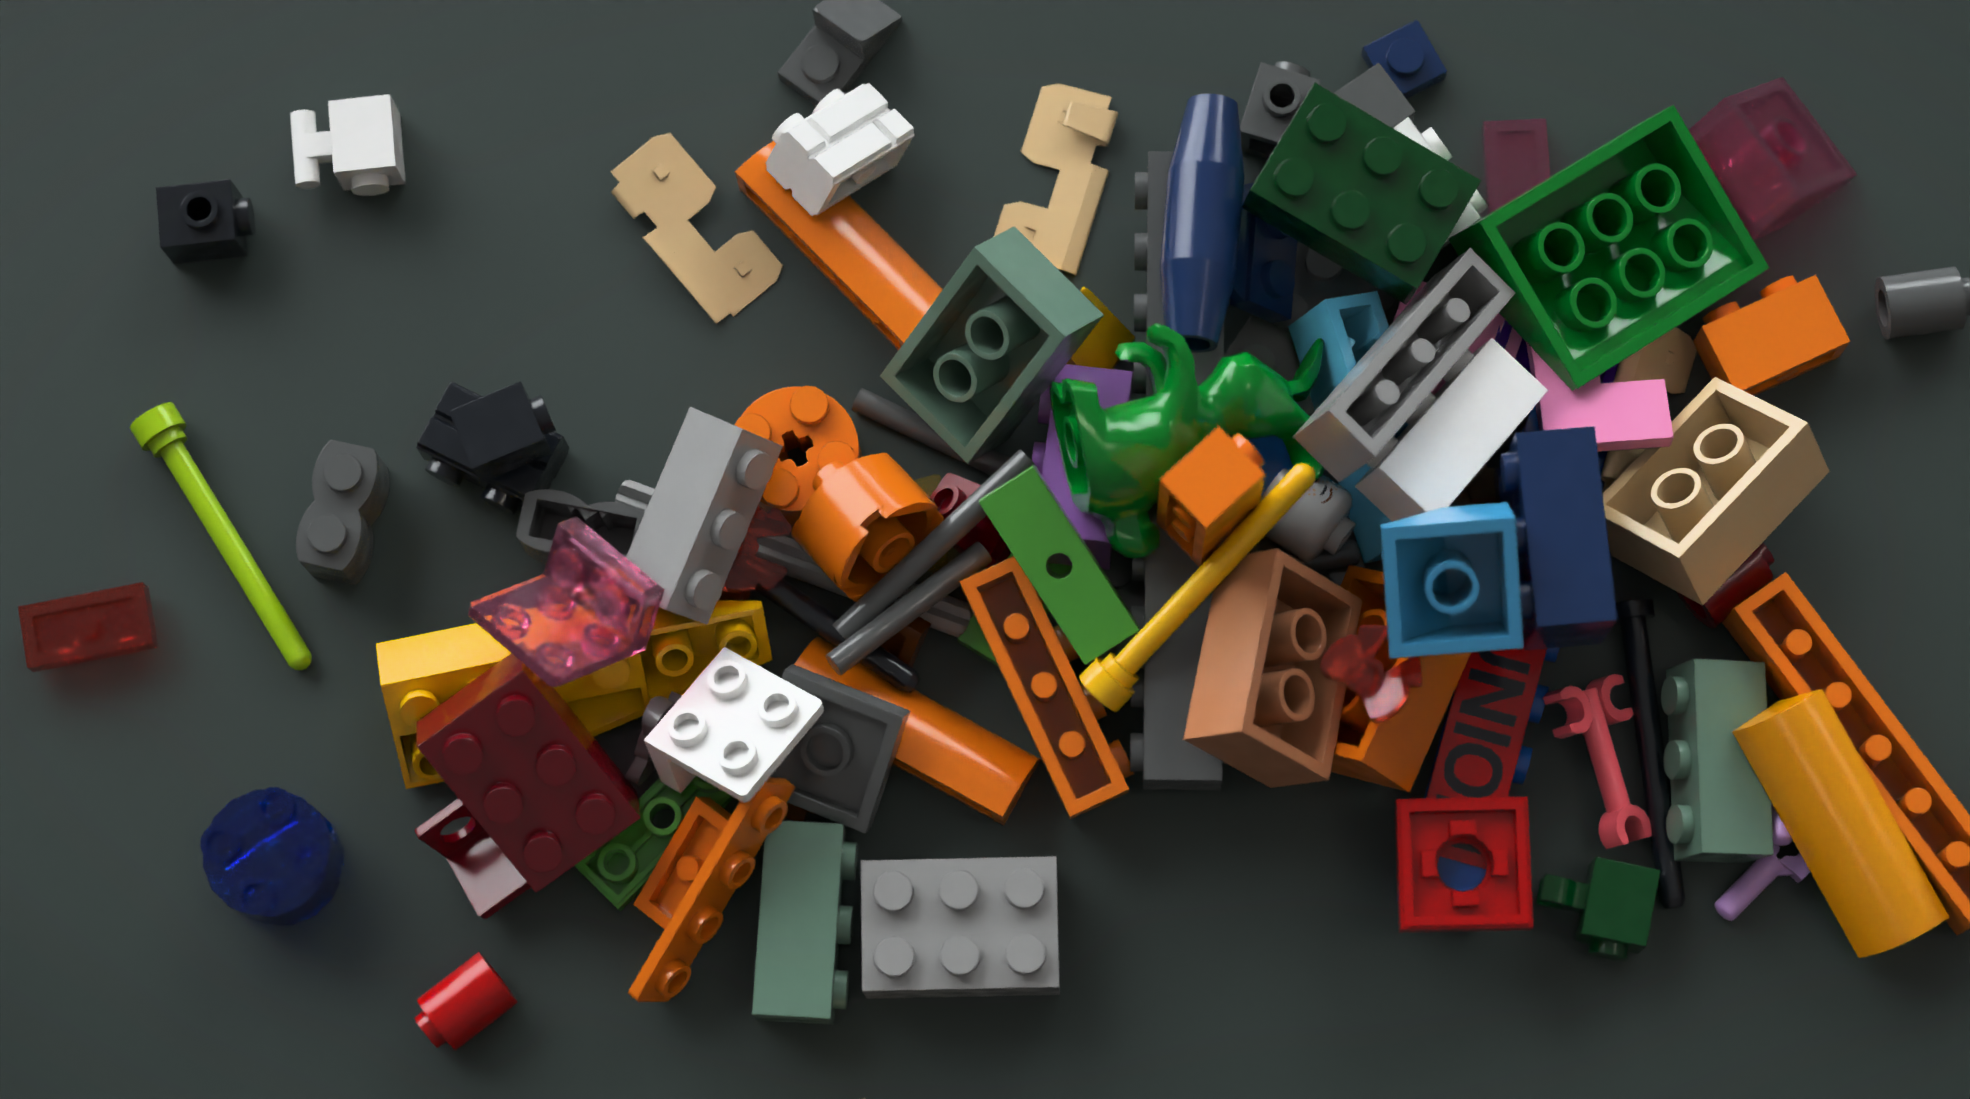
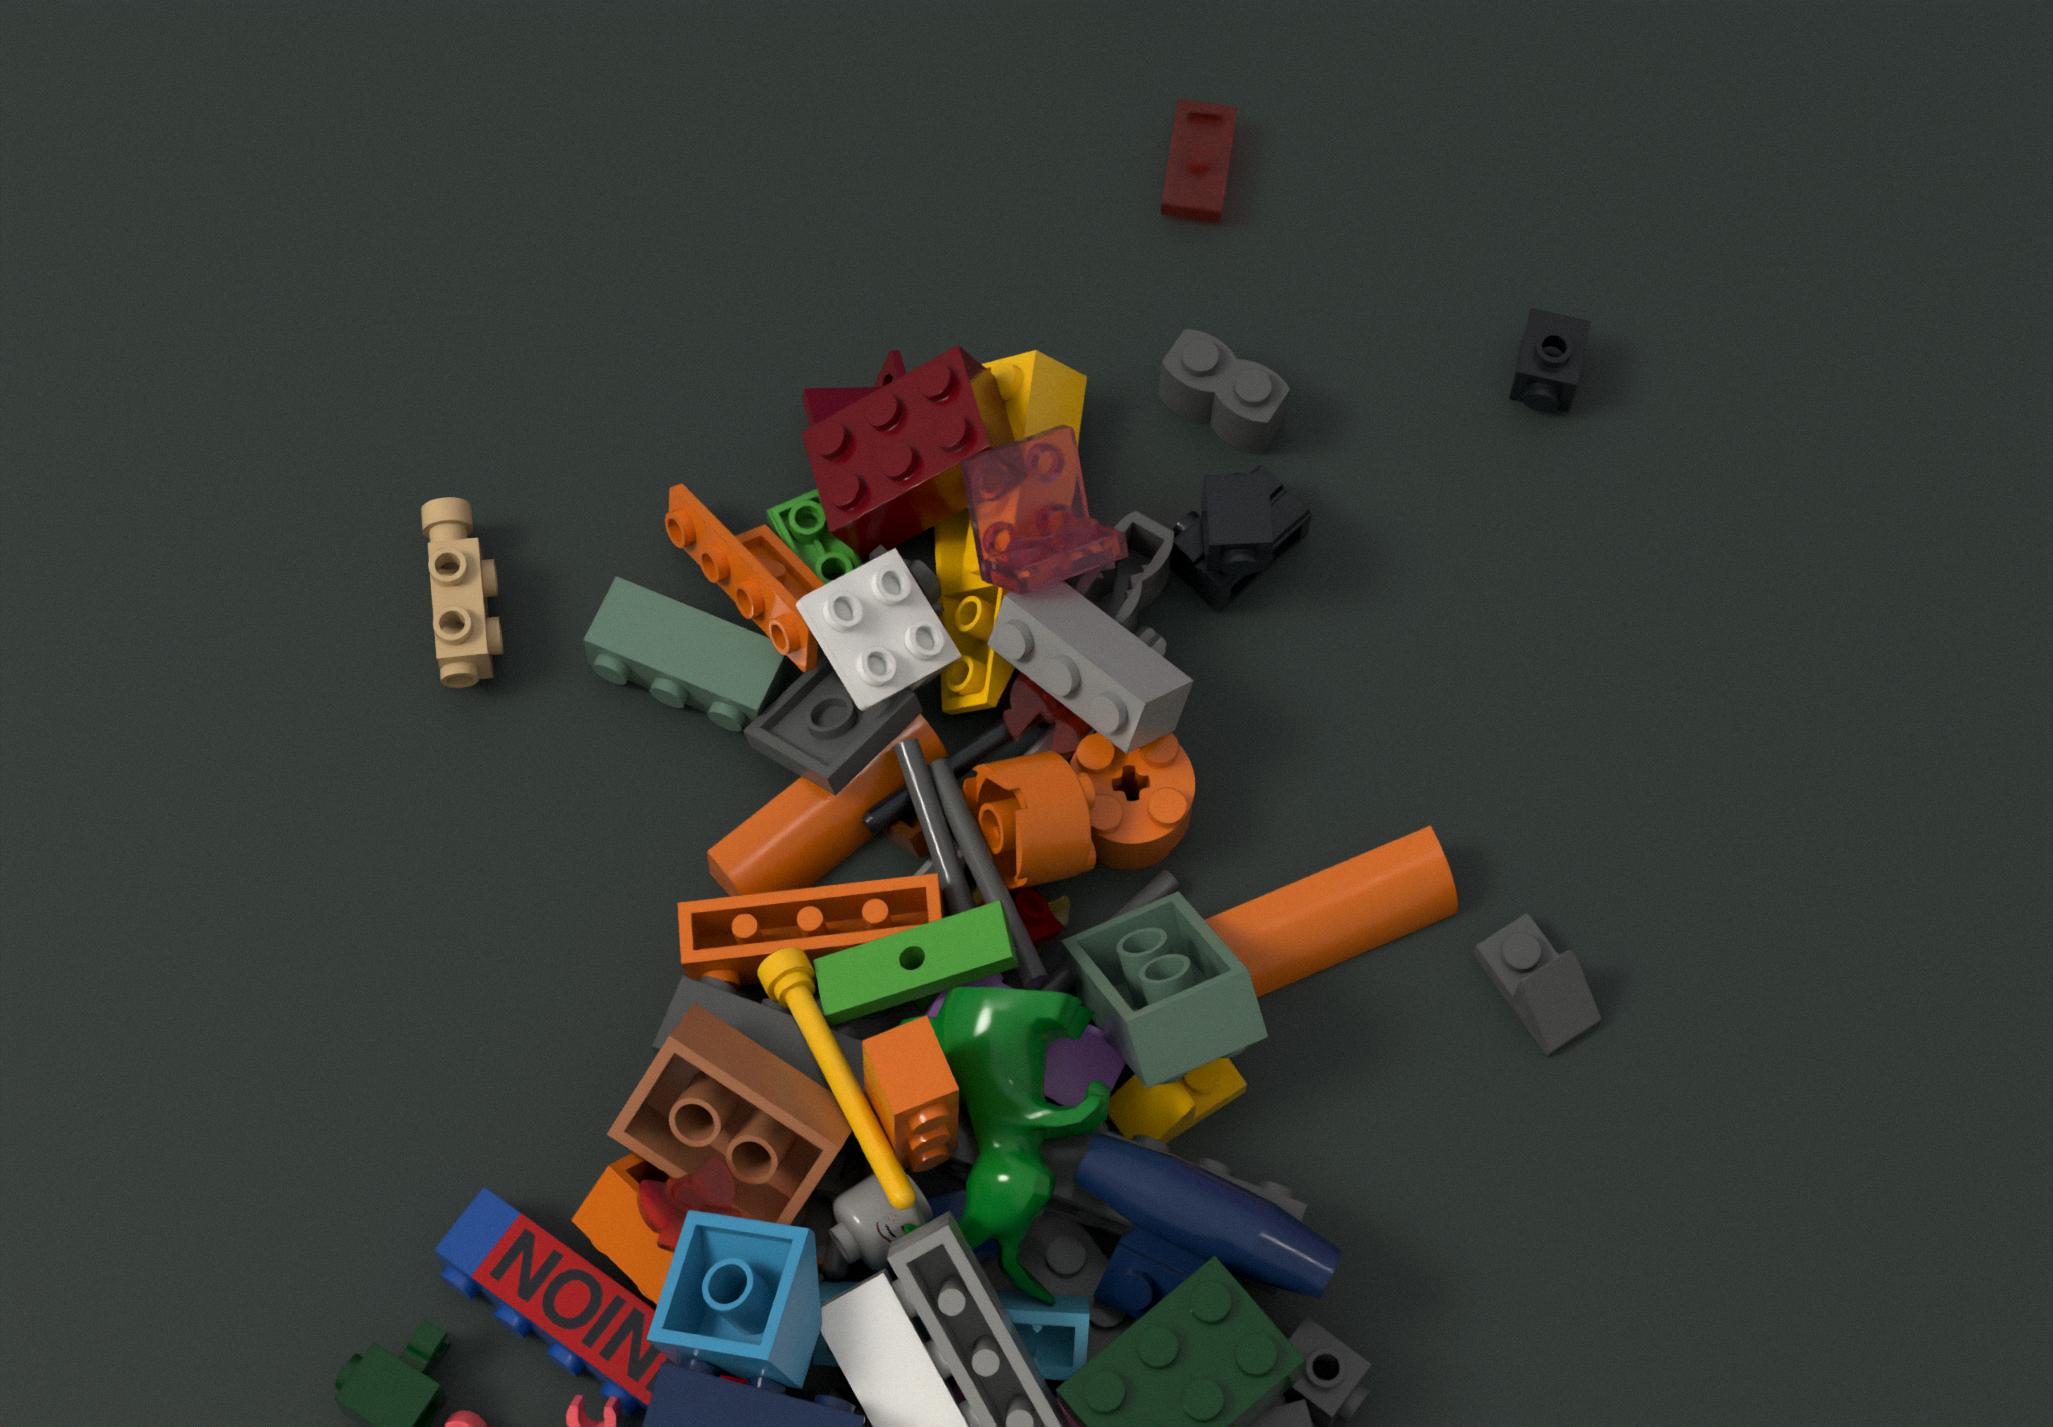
camera: 100 degrees right, 10 degrees down
(162, 434) = (1356, 272): lime piece -> none
(272, 857) = (926, 240): clear blue brick -> none
(361, 144) = (1579, 515): white brick -> none
(464, 1003) = (733, 357): red brick -> none
(670, 191) = (1440, 779): tan piece -> none
(838, 147) = (1423, 929): white brick -> none
(960, 927) = (622, 788): light grey brick -> none
(1064, 137) = (1370, 1164): tan piece -> none
(1493, 827) = (471, 1200): red piece -> none

